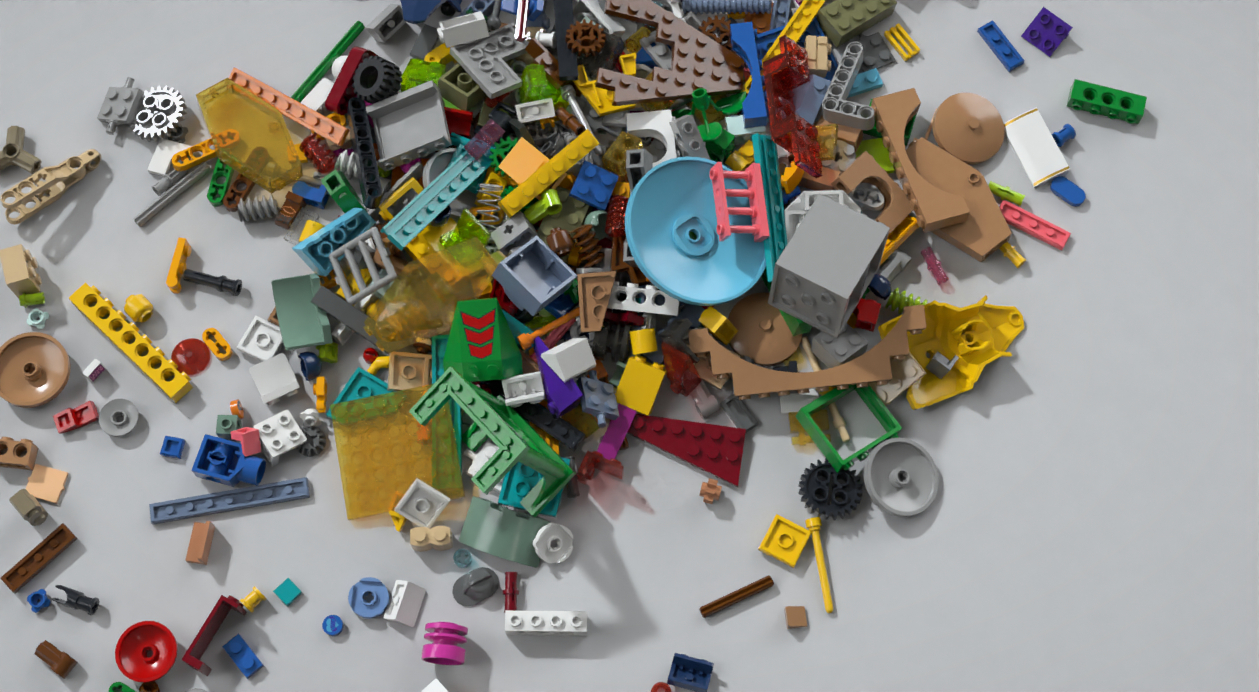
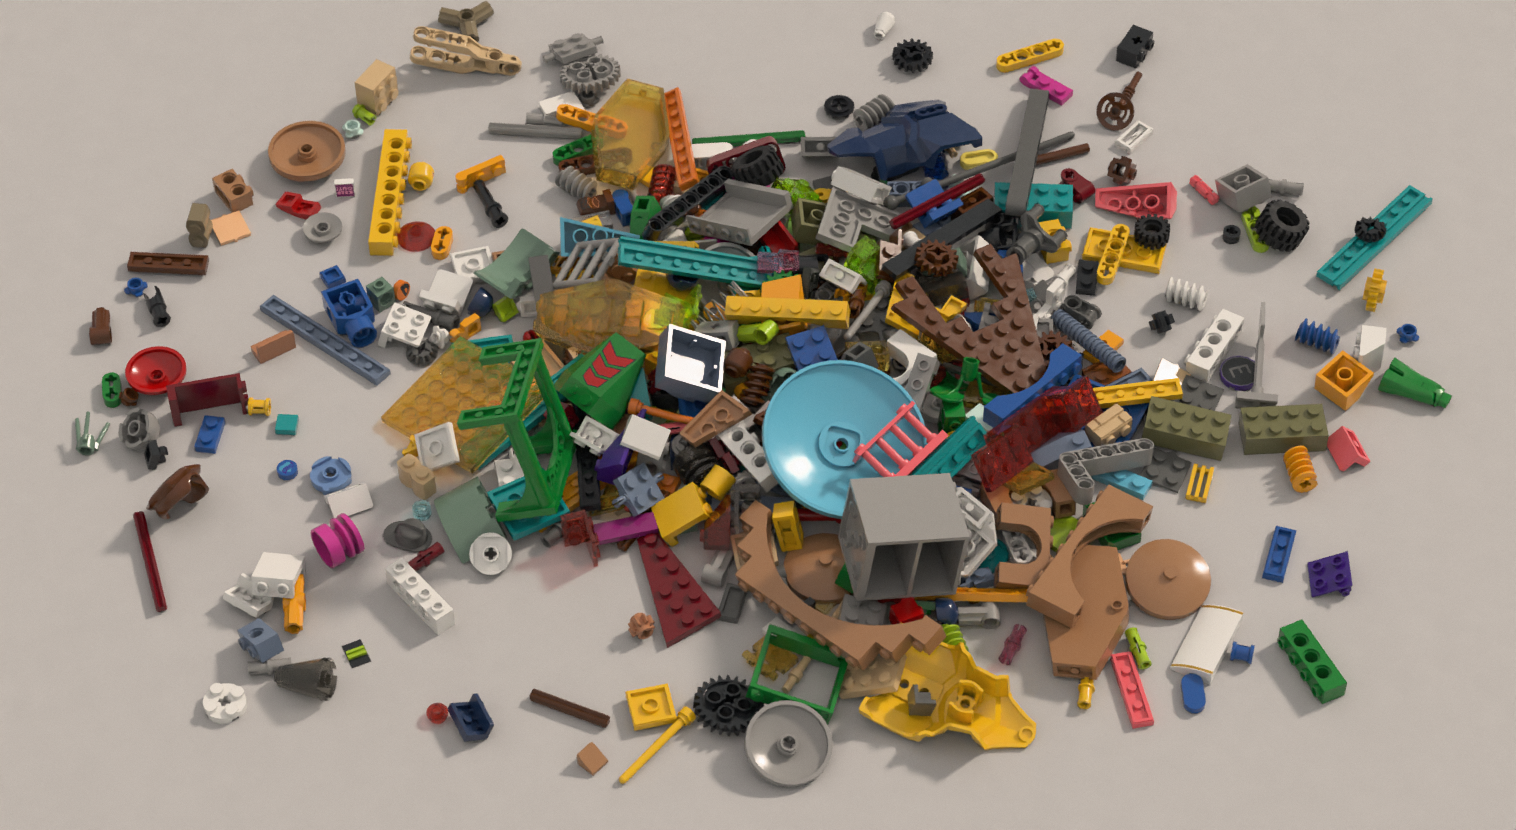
camera: 50 degrees right, 20 degrees down
(249, 440) = (379, 308): coral panel -> none
(291, 404) = (438, 318): none -> dark grey pin
(791, 177) = (968, 478): light orange slope -> none

